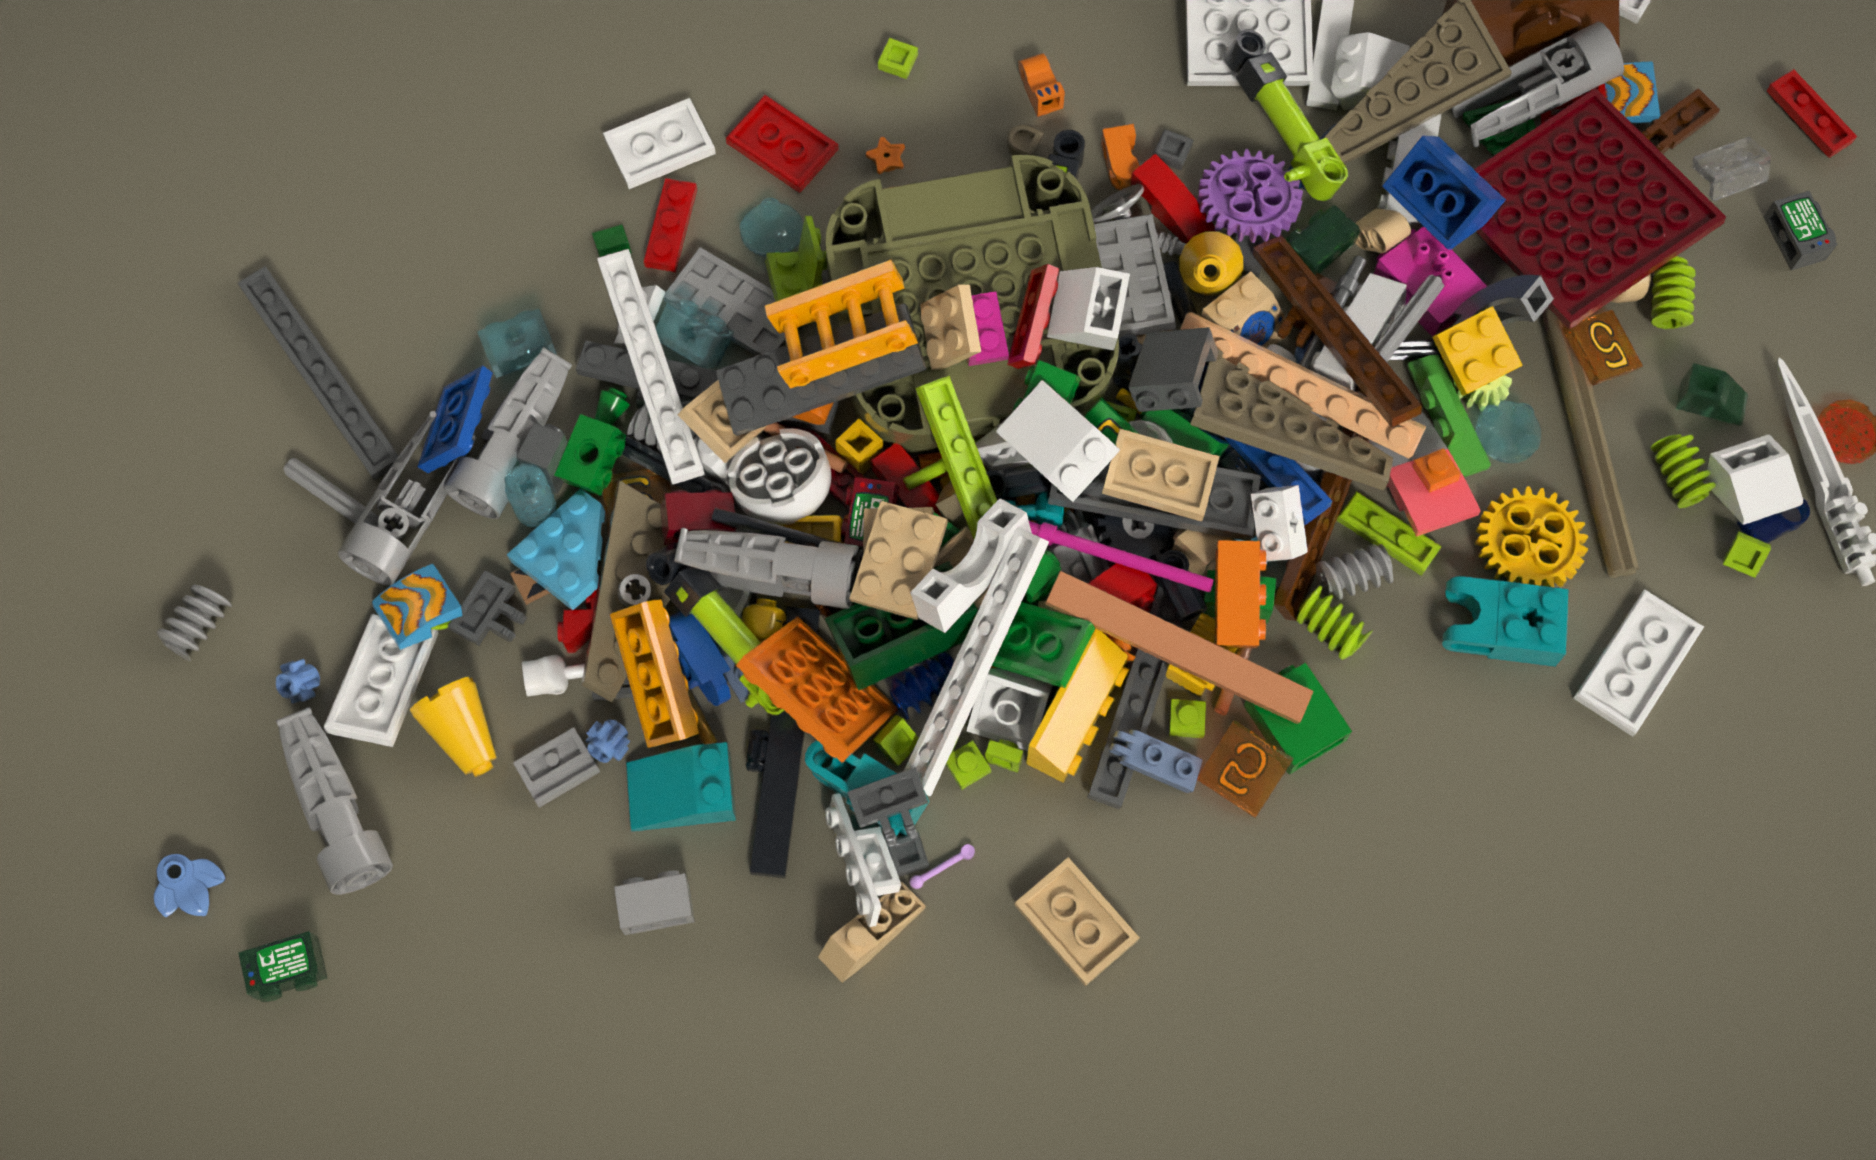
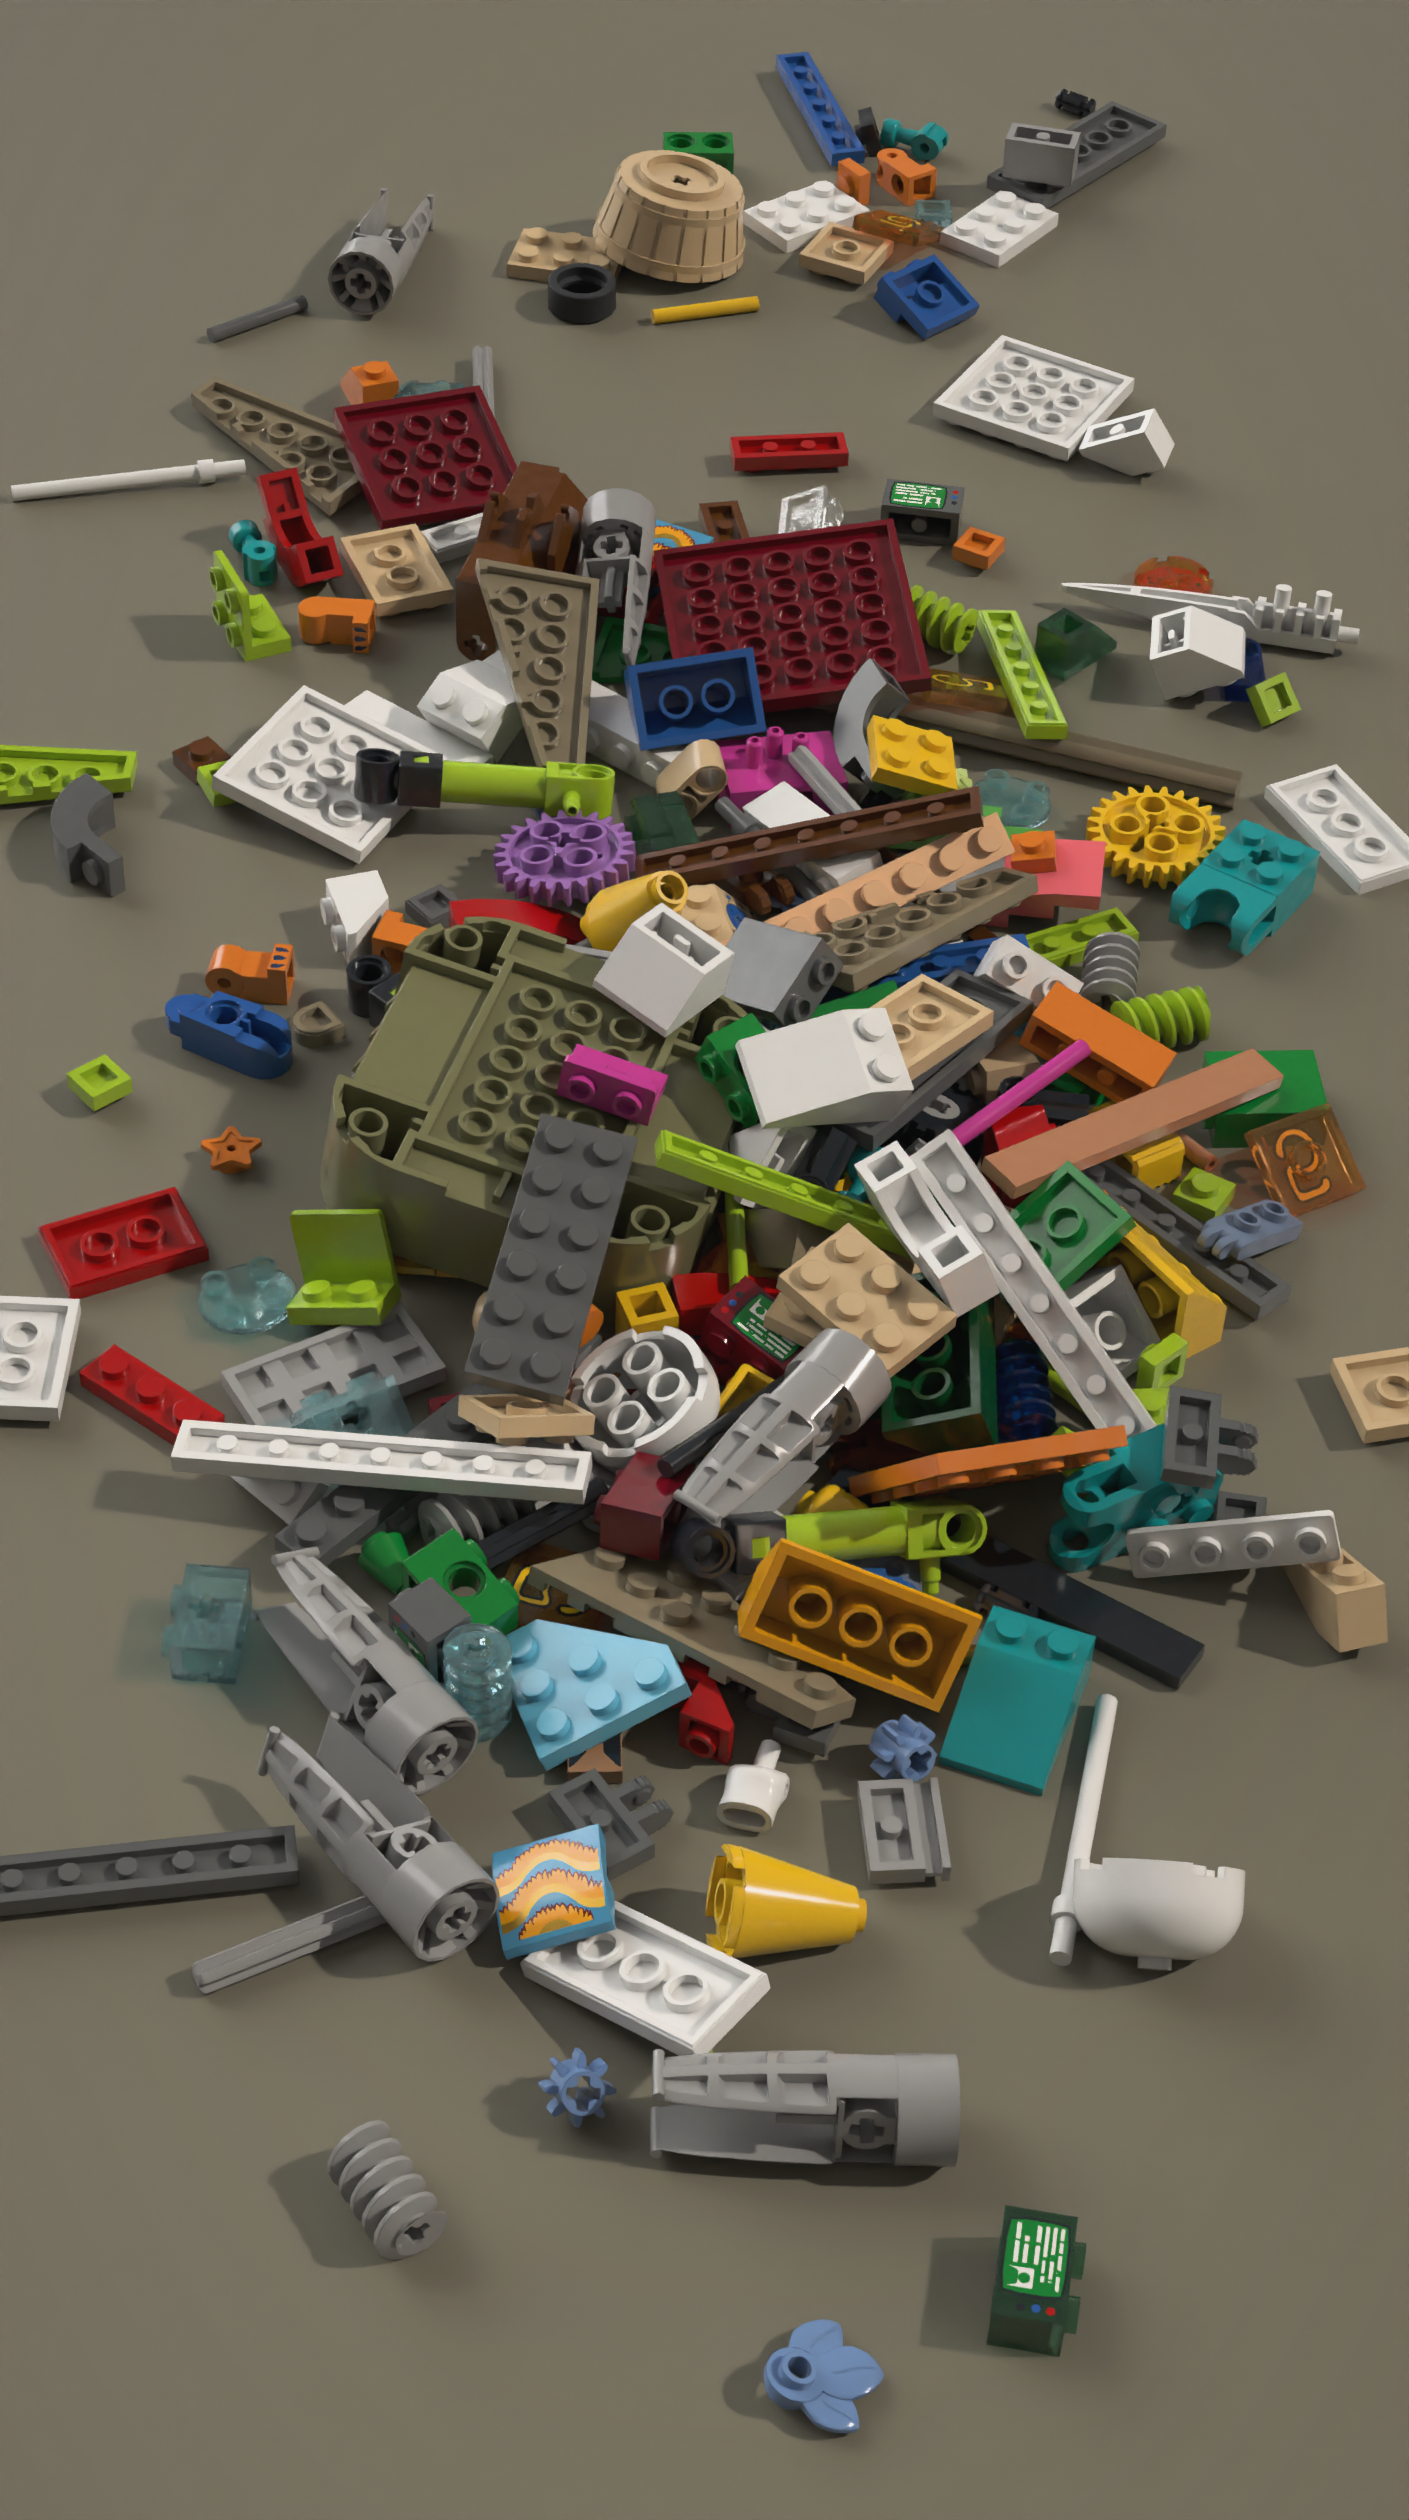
camera: 65 degrees left, 25 degrees down
(455, 419) = (306, 1702): blue plate -> none
(545, 881) = (1062, 1913): none -> white bar
(545, 921) = (1157, 1908): none -> white cylinder
(611, 241) = (128, 1469): green slope -> none
(641, 583) = (719, 1600): light grey gear -> none
(654, 903) = (1172, 1794): light grey brick -> none
(830, 299) = (485, 1159): light orange fence -> none
(950, 327) = (605, 1084): tan plate -> none
(967, 853) = (1266, 1464): lavender hinge -> none
(981, 79) = (232, 1033): none -> blue piece
(1033, 316) = (636, 1026): red plate -> none
(1131, 104) = (354, 909): none -> white slope
(1648, 377) = (1021, 675): none -> lime tile
(1682, 469) = (1146, 696): lime piece -> none
(1787, 285) = (978, 548): none -> orange plate

